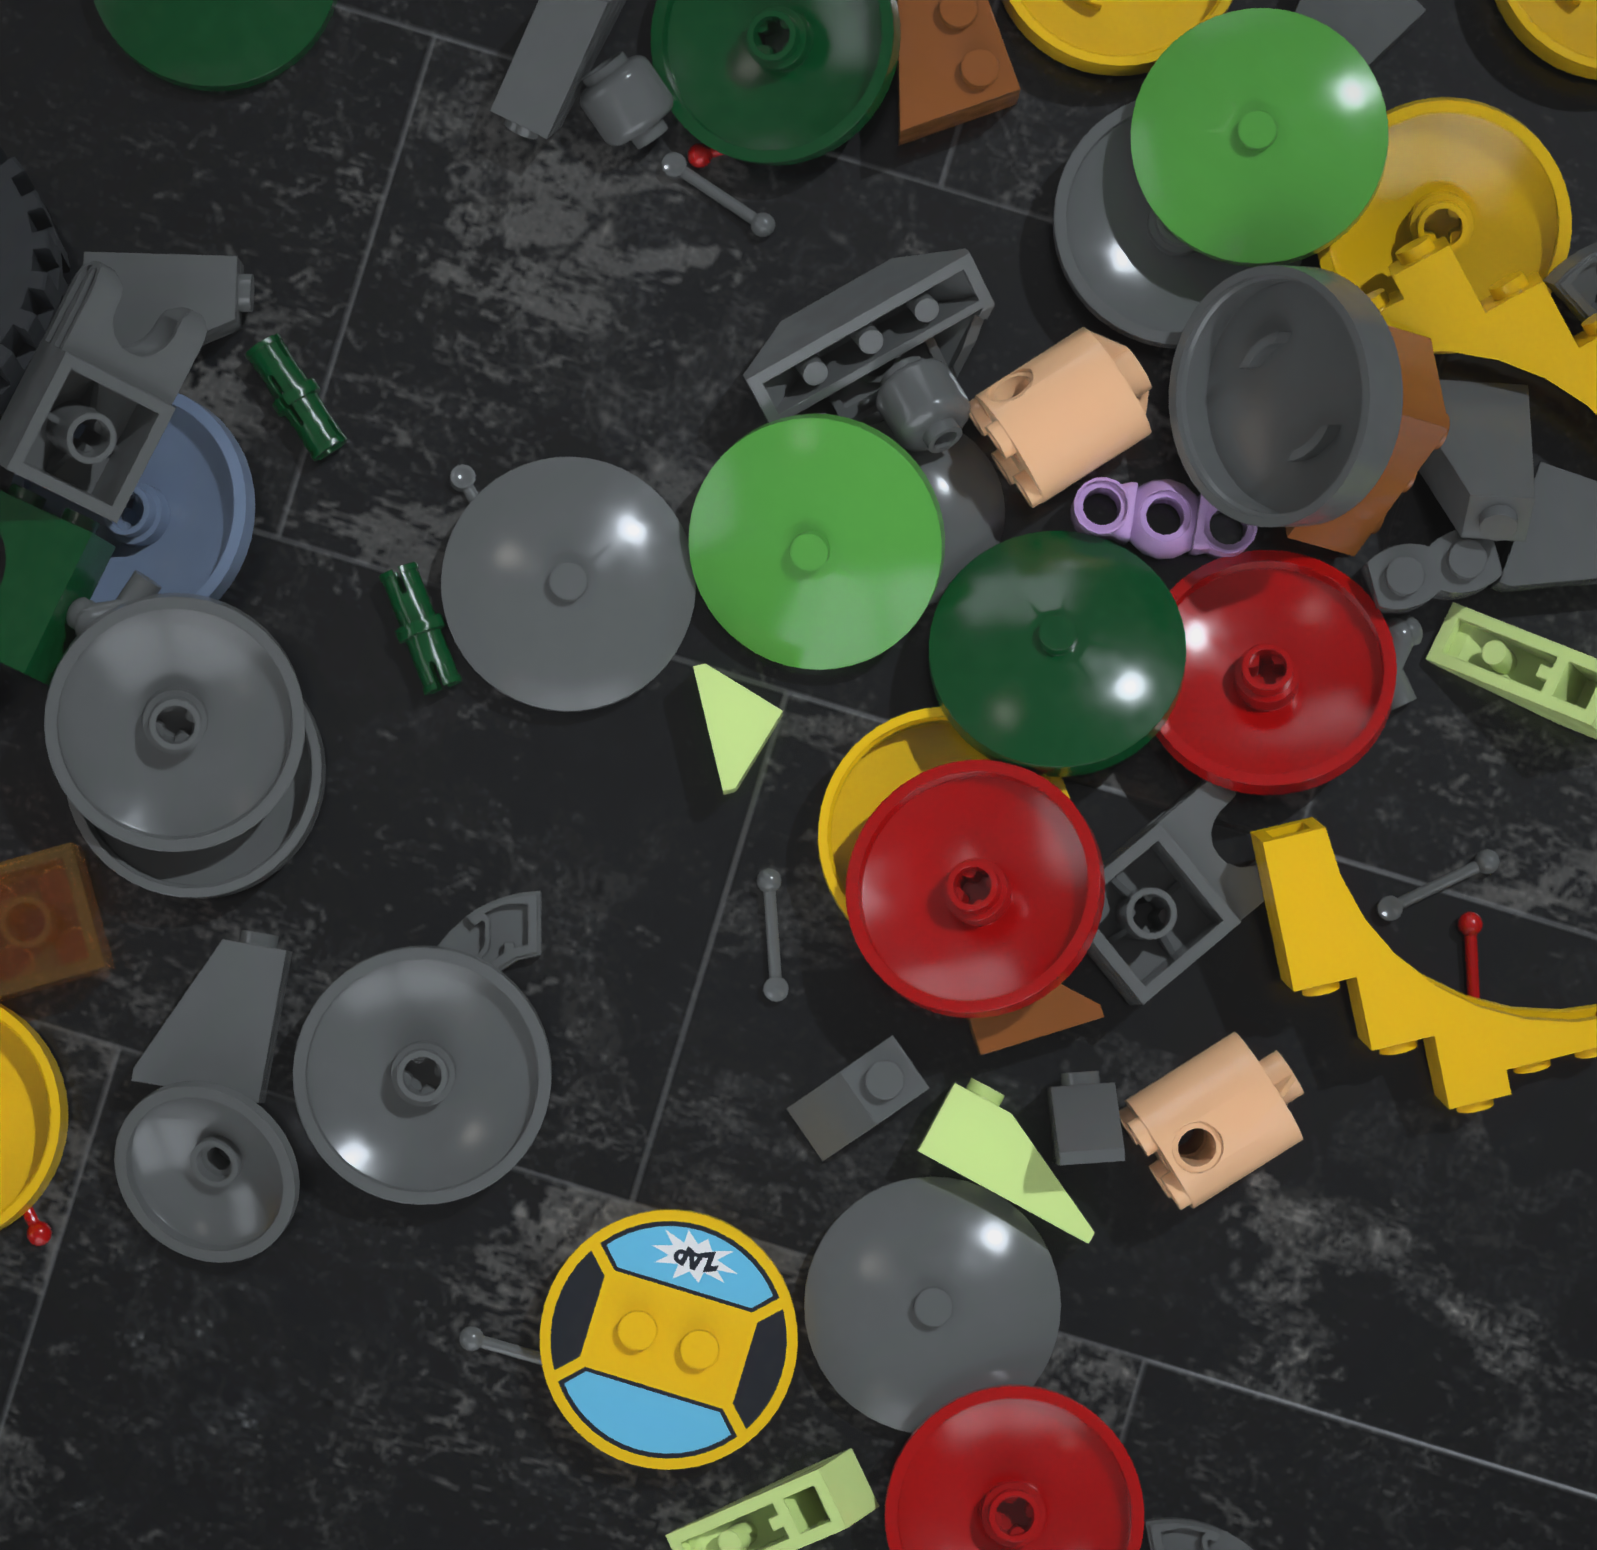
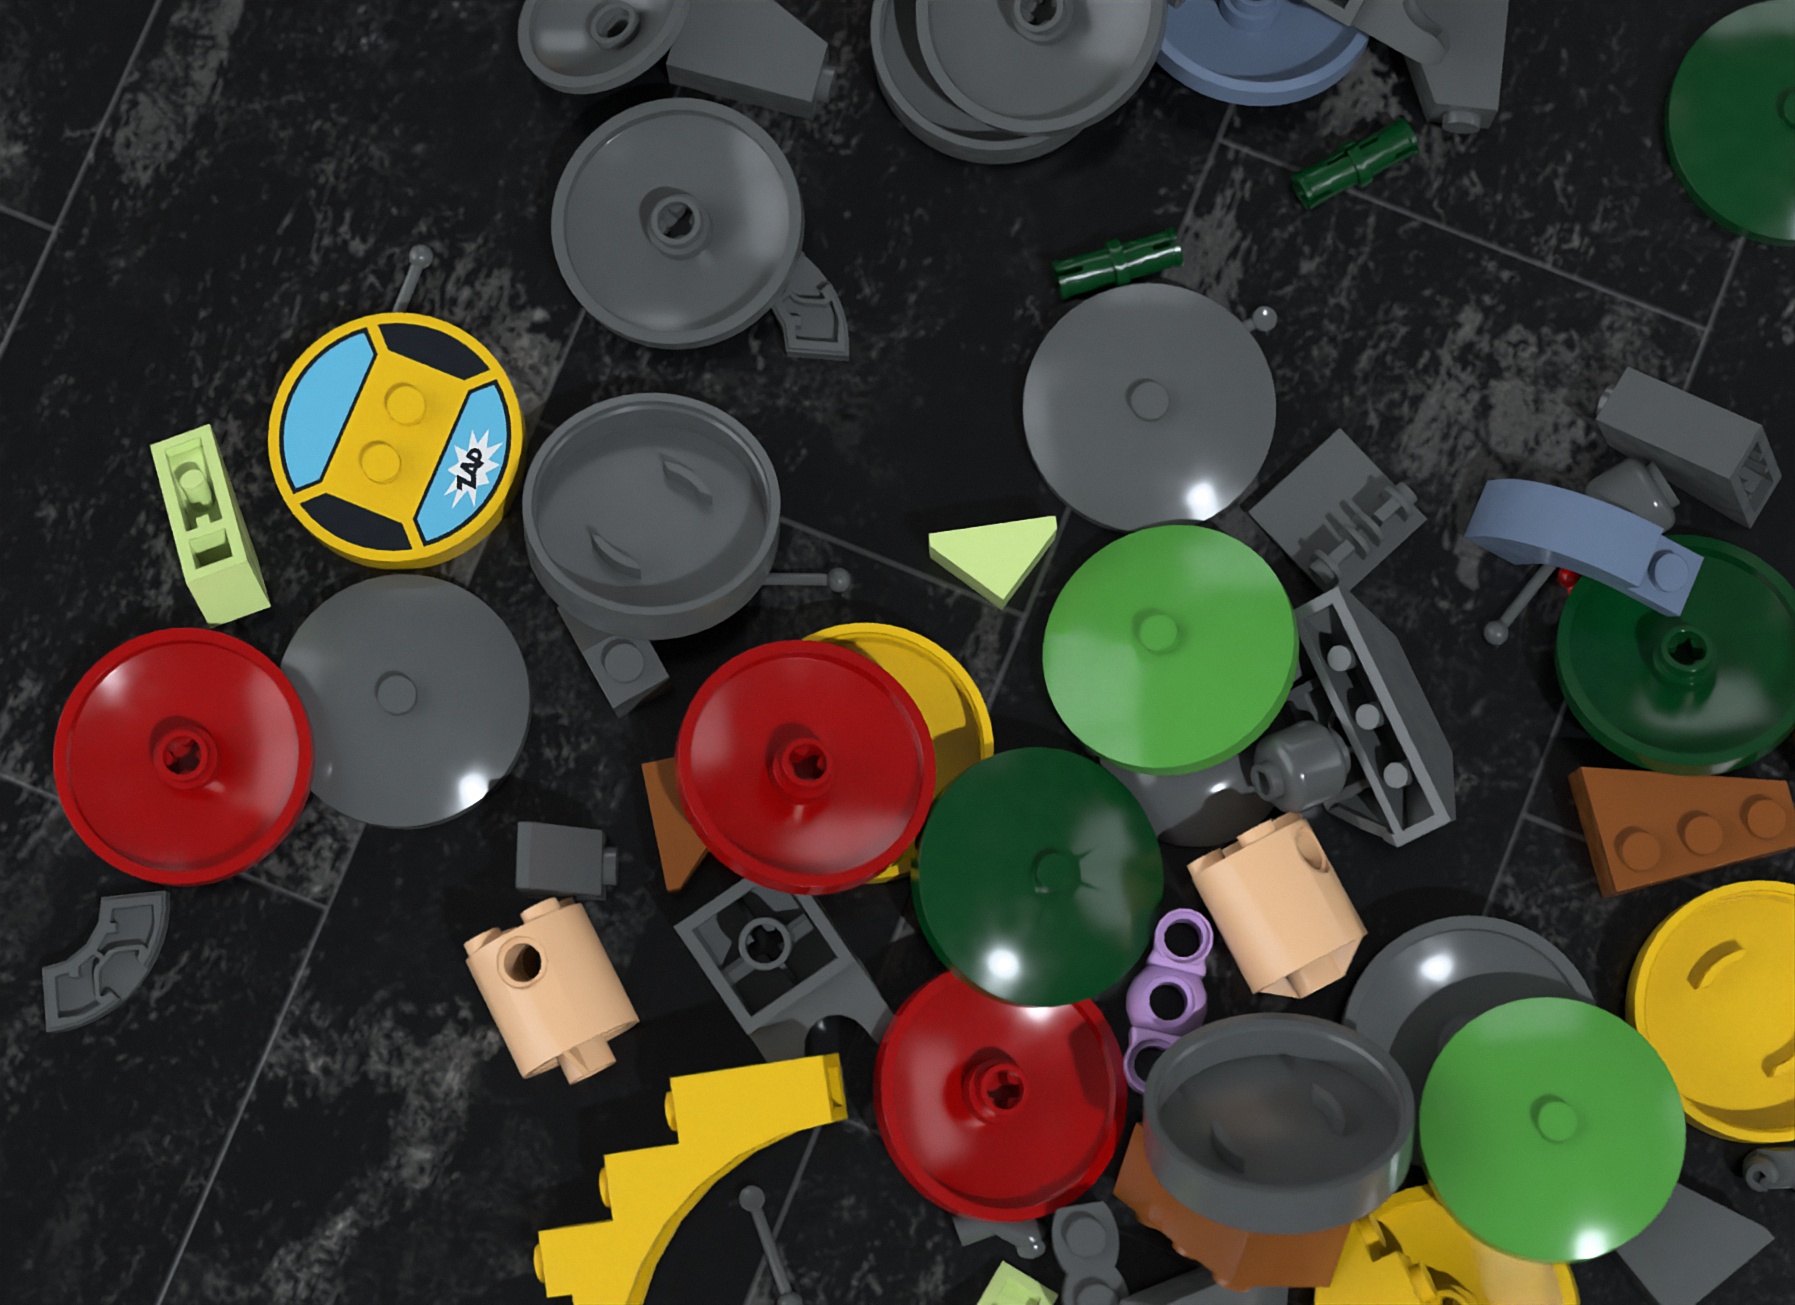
camera: 100 degrees right, 5 degrees down
(660, 388) = (1338, 514): none -> dark grey hinge
(674, 143) = (1584, 535): none -> sand blue arch
(729, 1069) = (651, 516): none -> dark grey brick
(994, 1151) = (544, 774): yellowish green slope -> none
(1470, 925) = (726, 1278): red hinge -> none

